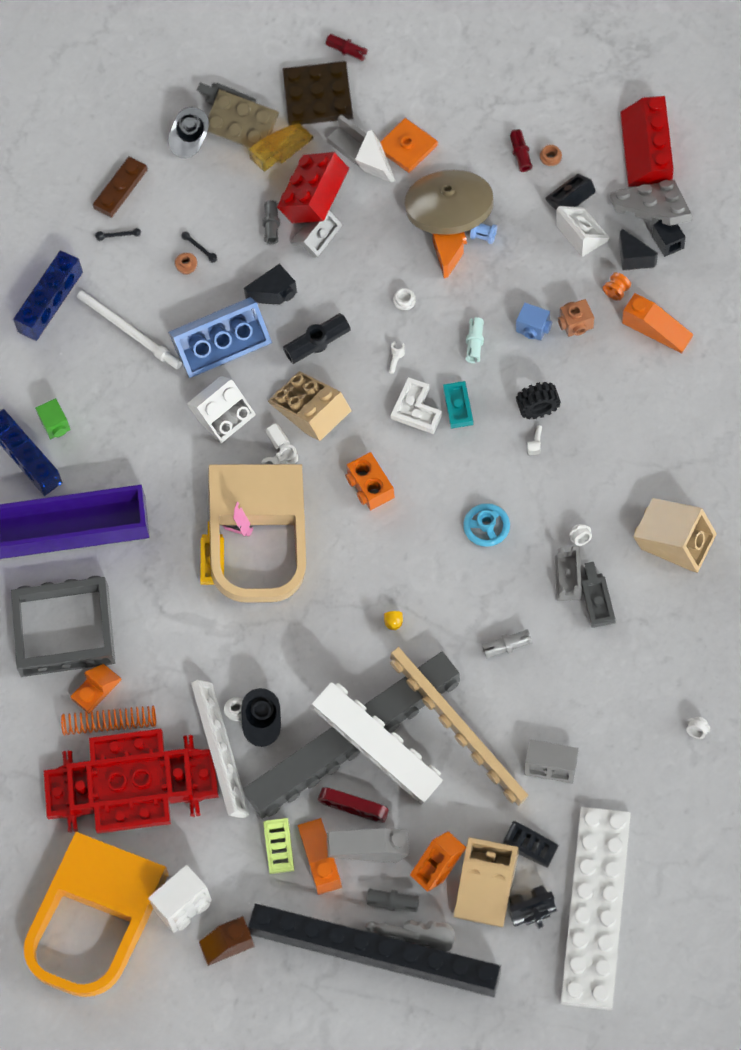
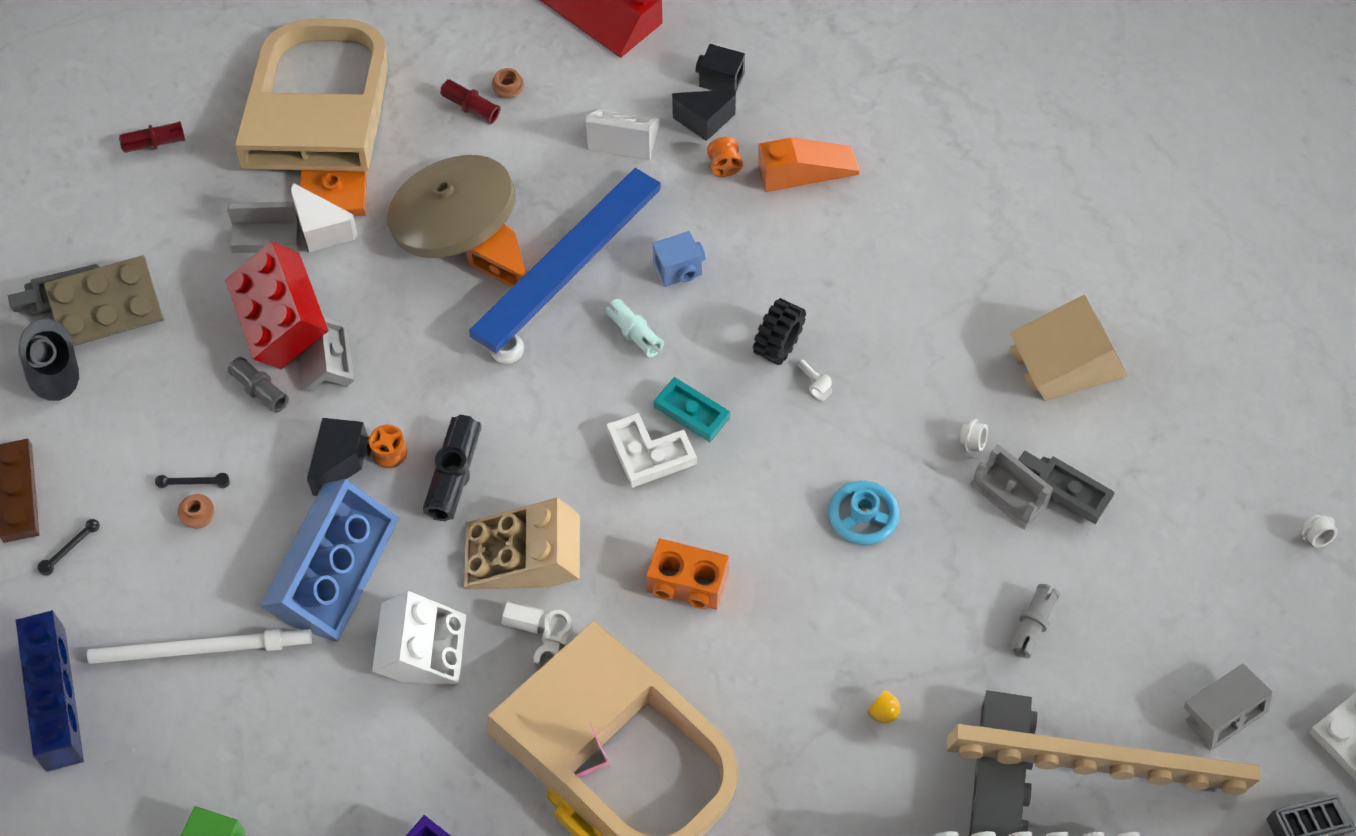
camera: 50 degrees left, 5 degrees down
(279, 146) = (181, 296): clear yellow slope -> none
(298, 297) = (391, 438): none -> orange wheel
(317, 93) = (166, 209): dark brown plate -> none
(396, 354) = (560, 413): white hand -> none
(424, 104) = (312, 129): none -> tan window
(479, 276) = (564, 261): none -> blue tile
(484, 232) = (524, 209): light blue bush -> none
(572, 192) = (570, 105): black slope -> none
(576, 318) = (721, 217): nougat brick -> none
(653, 201) = (671, 47): light grey plate -> none

